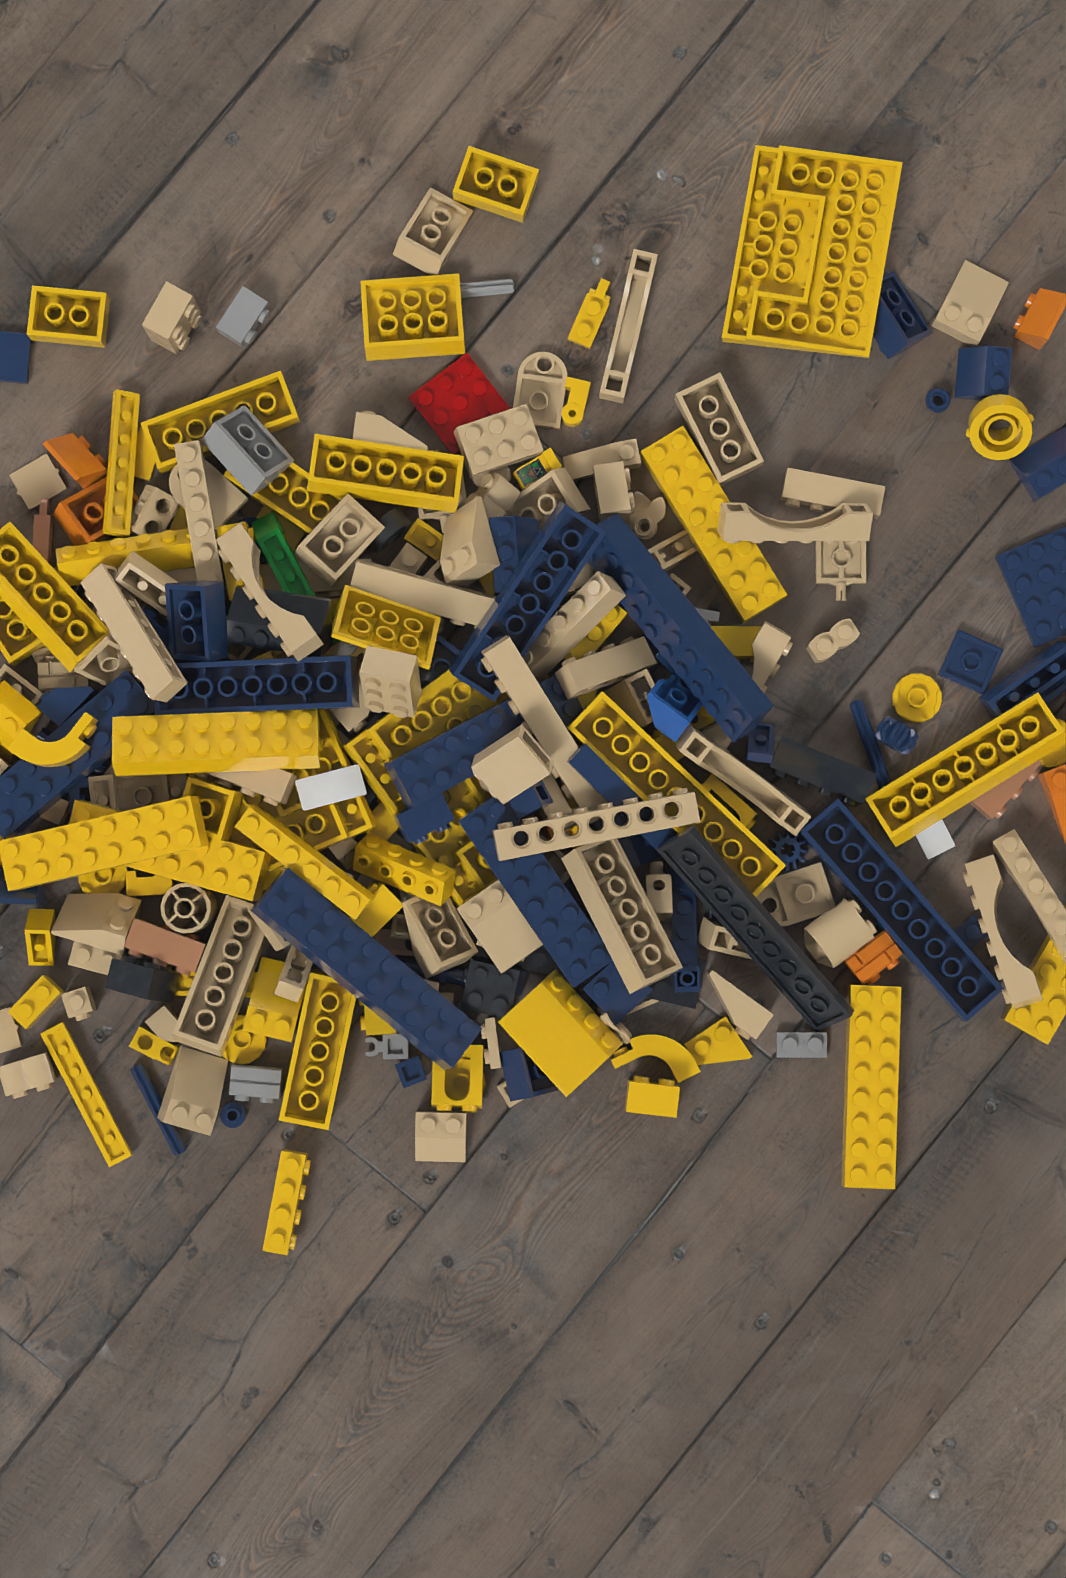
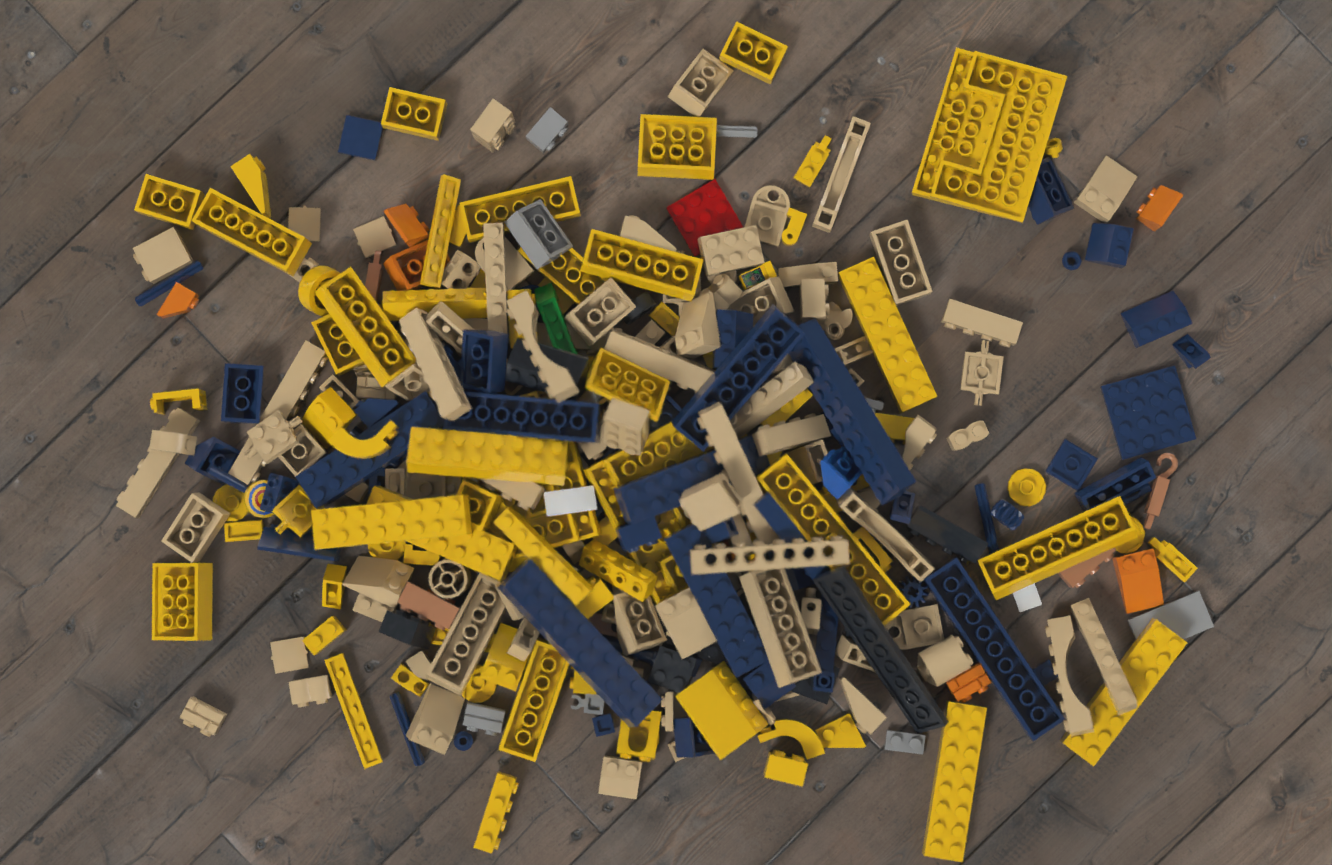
camera: 10 degrees right, 0 degrees up
(79, 1003) = (356, 640): tan brick -> none
(845, 523) = (987, 347): tan arch -> none
(896, 258) = (1053, 147): none -> yellow tile
(1000, 443) = (1116, 299): yellow piece -> none

